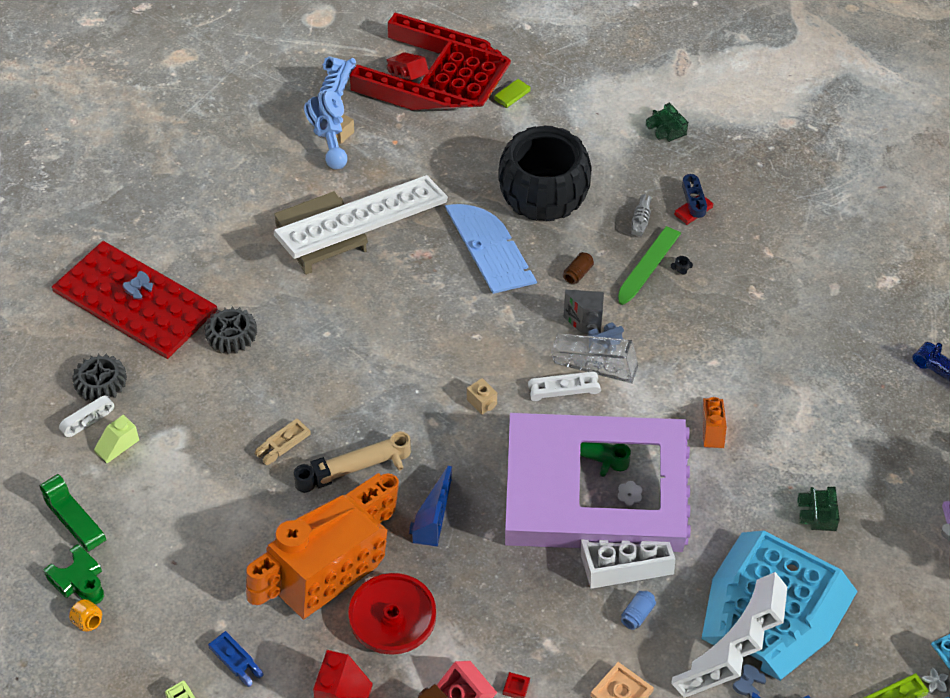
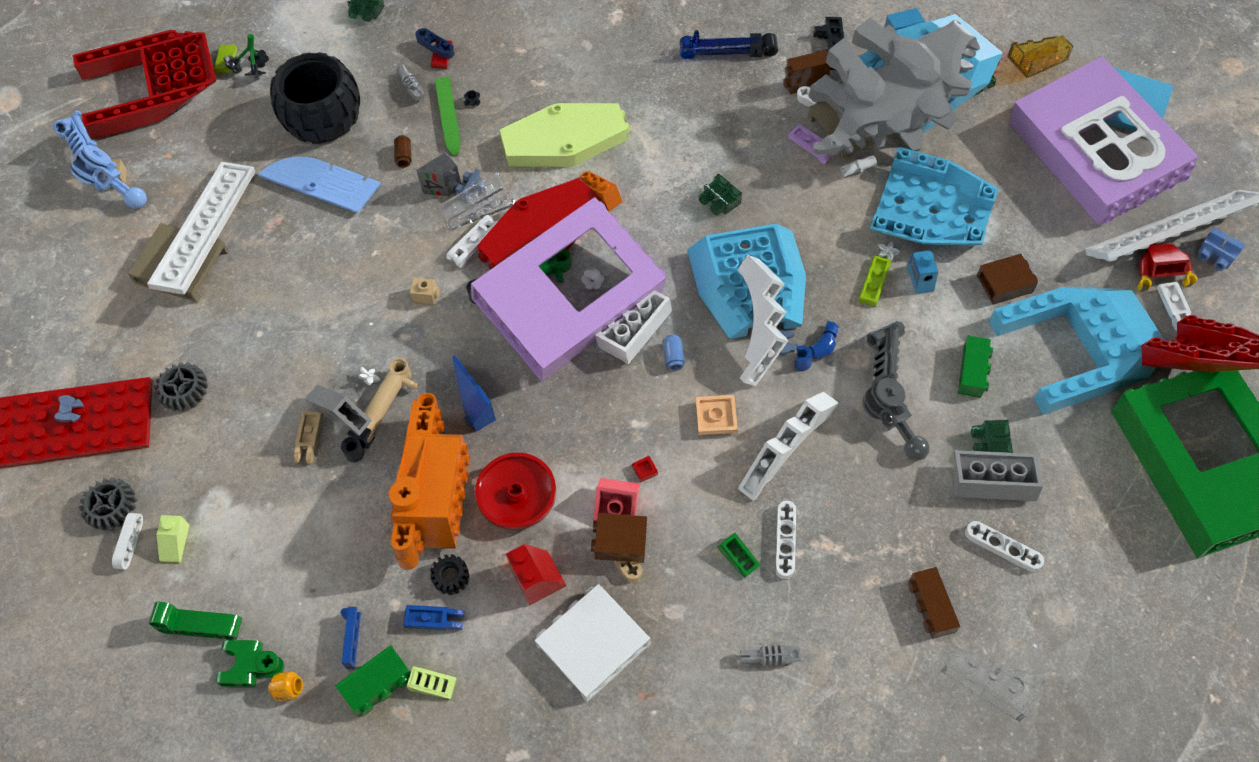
camera: 40 degrees left, 10 degrees up
(146, 665) = (374, 681): none -> green slope
(164, 620) = (351, 636): none -> blue hinge
(282, 647) = (441, 566): none -> black tyre
(320, 437) = (338, 408): none -> light grey slope
(373, 431) = (368, 376): none -> white plant
(407, 66) = (124, 89): red brick -> none
(536, 110) = (256, 58): none -> black plant
(634, 399) = (531, 218): none -> red container
(731, 352) = (564, 134): none -> yellowish green container

